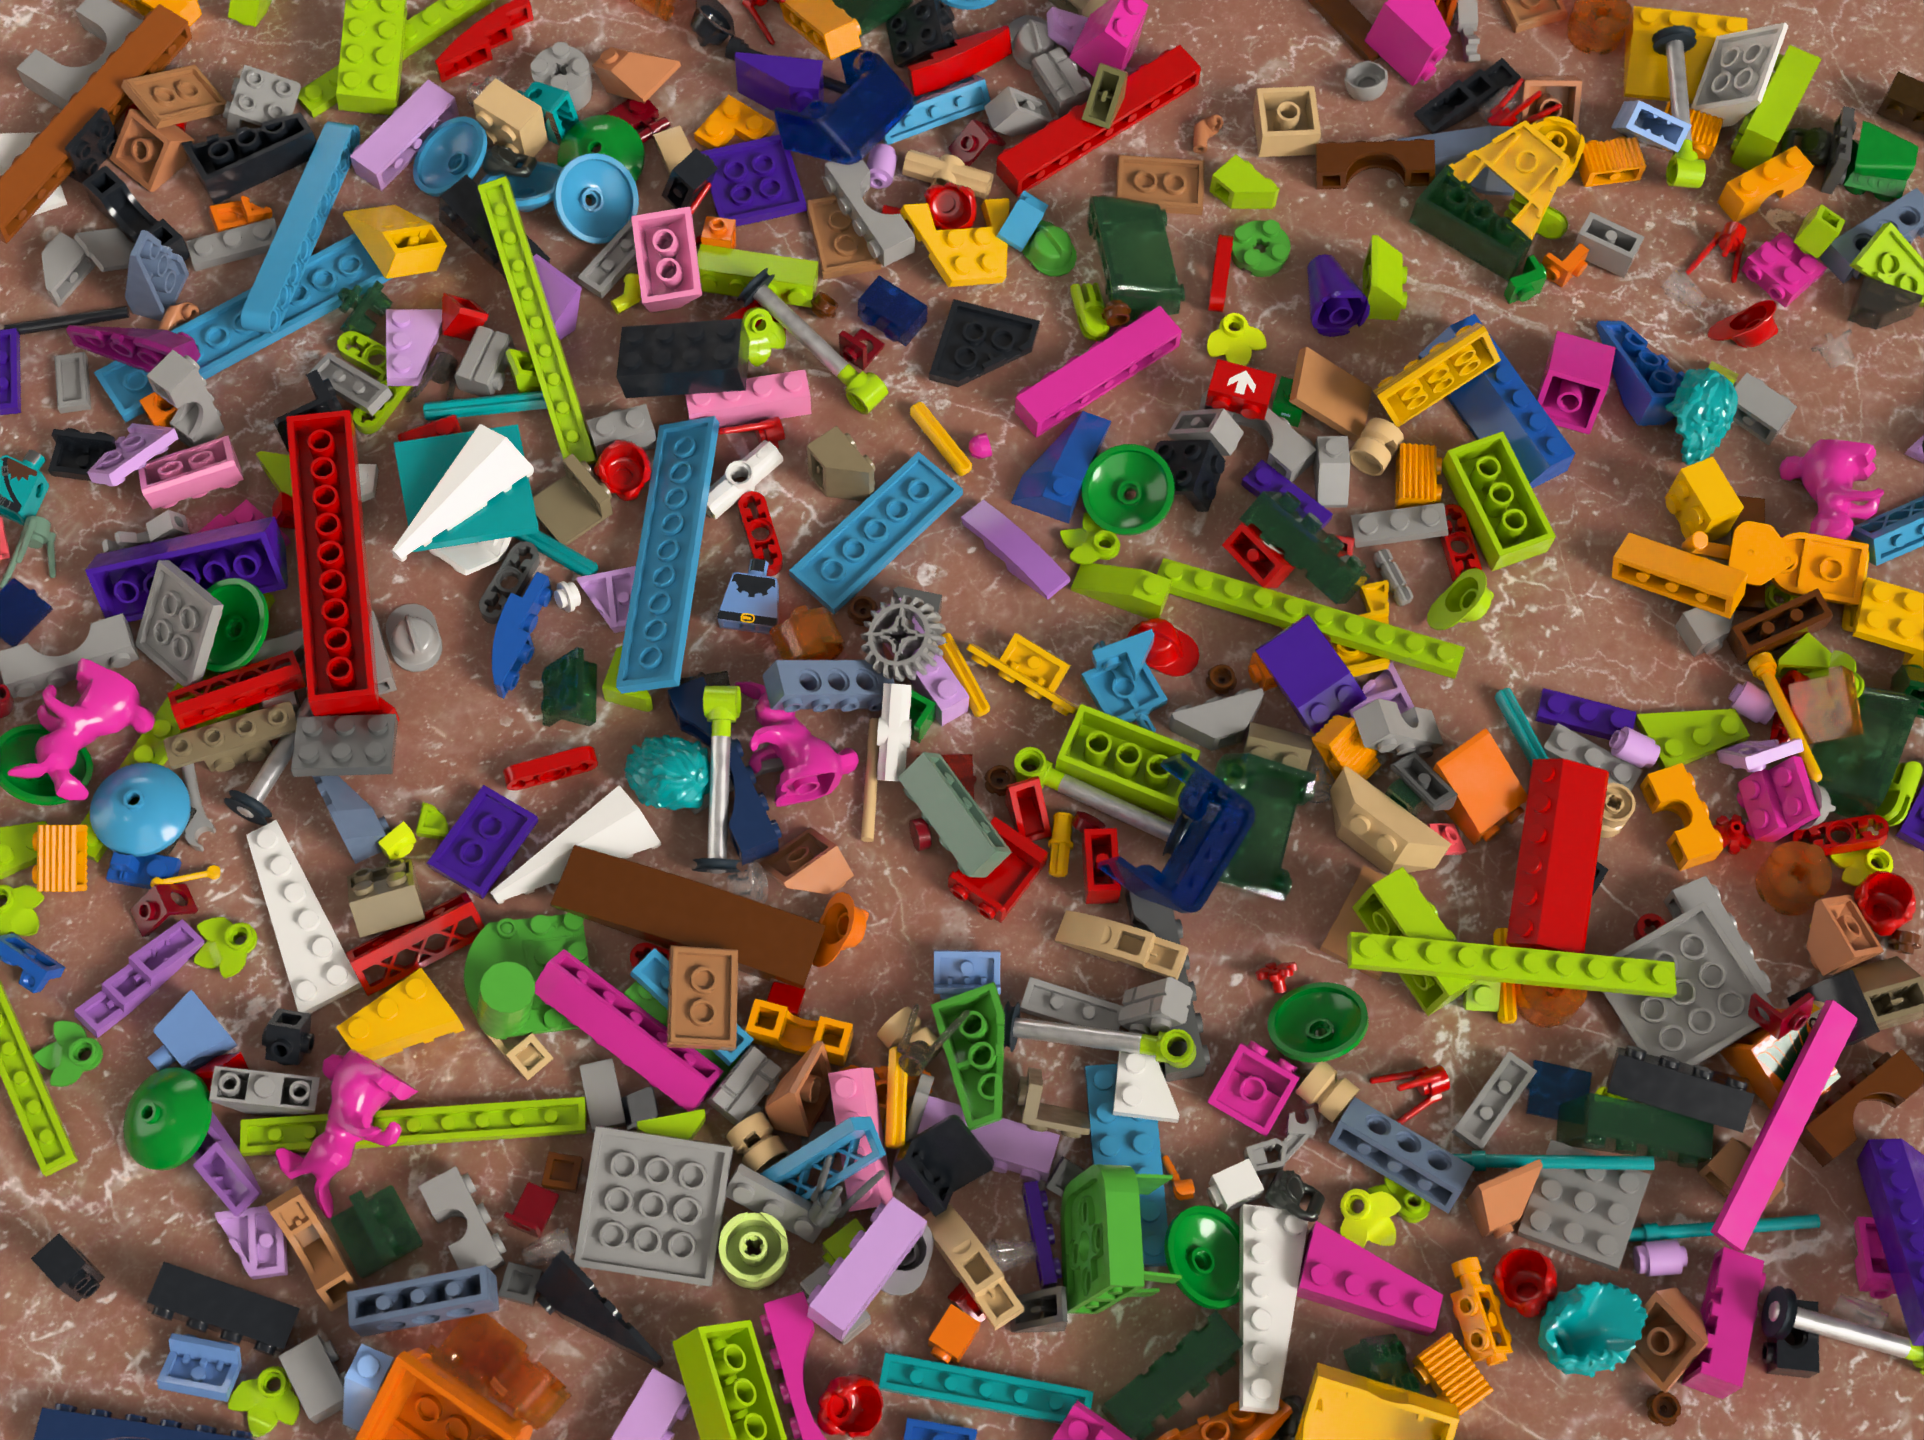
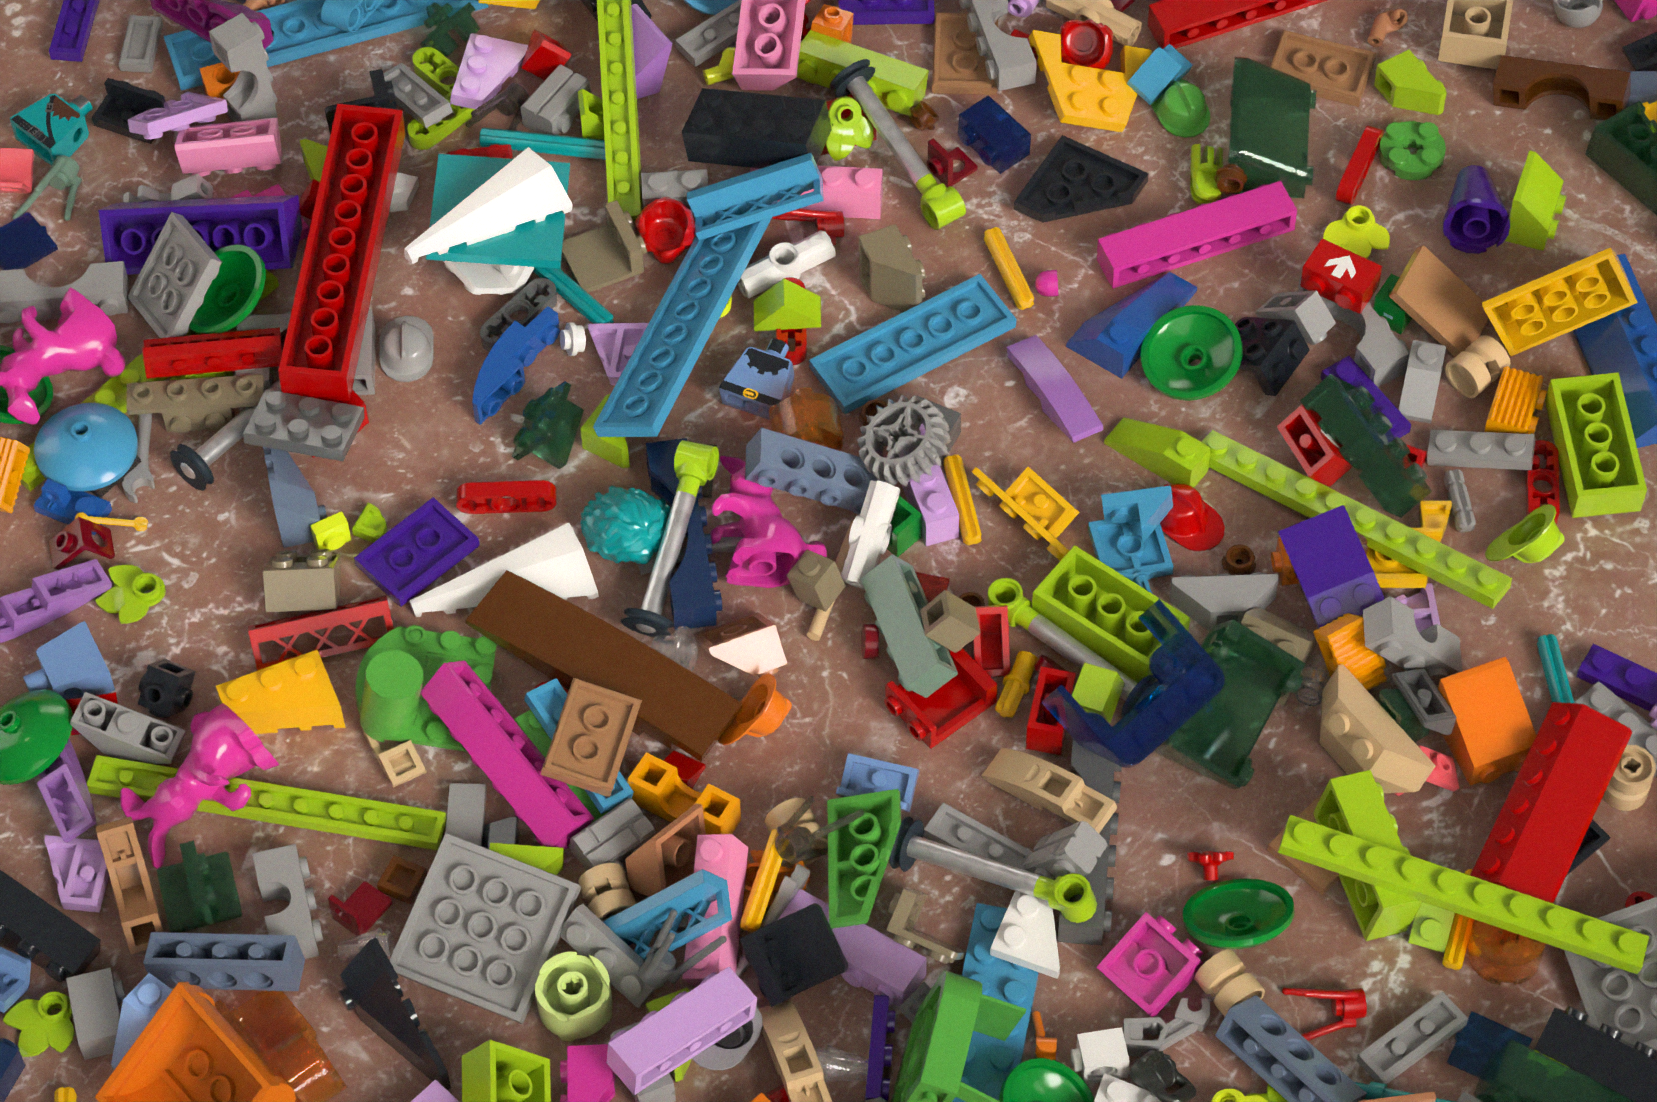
camera: 20 degrees right, 10 degrees down
(307, 942) = (213, 607): white wing -> none
(520, 1284) = (324, 974): dark grey plate -> none
(699, 419) = (755, 193): none -> dark azure fence
(755, 524) = (787, 307): none -> lime slope
(858, 788) = (816, 580): none -> dark tan brick
(994, 806) = (950, 621): none -> dark tan brick
(1087, 542) = (1138, 400): lime plate -> none
(1139, 842) = (1098, 690): none -> lime brick

